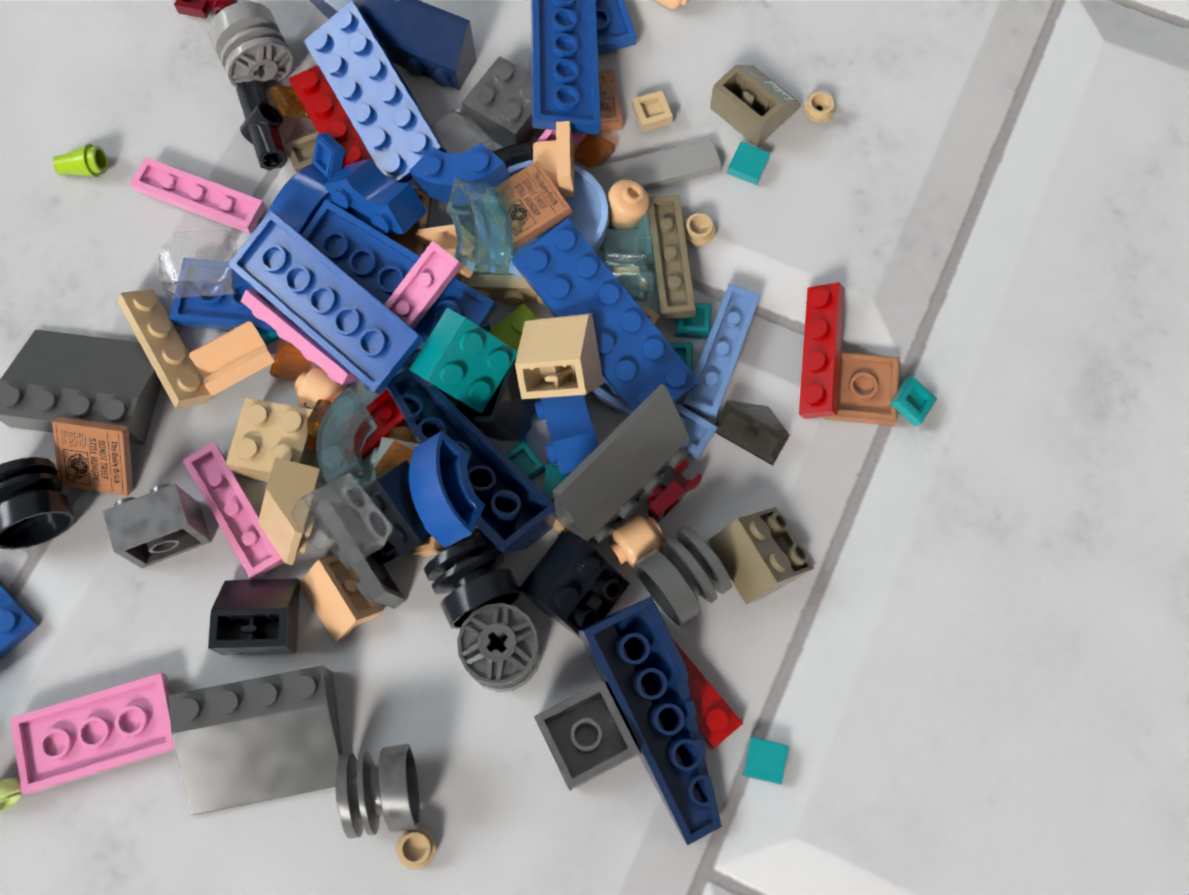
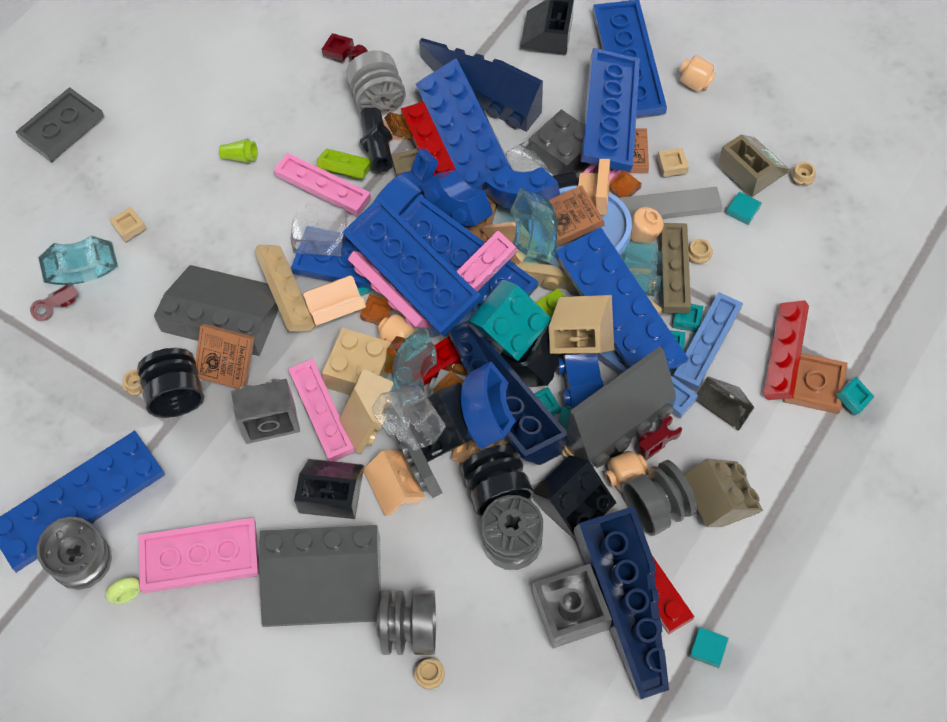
camera: 10 degrees right, 10 degrees down
(223, 163) = (344, 163): none -> lime plate

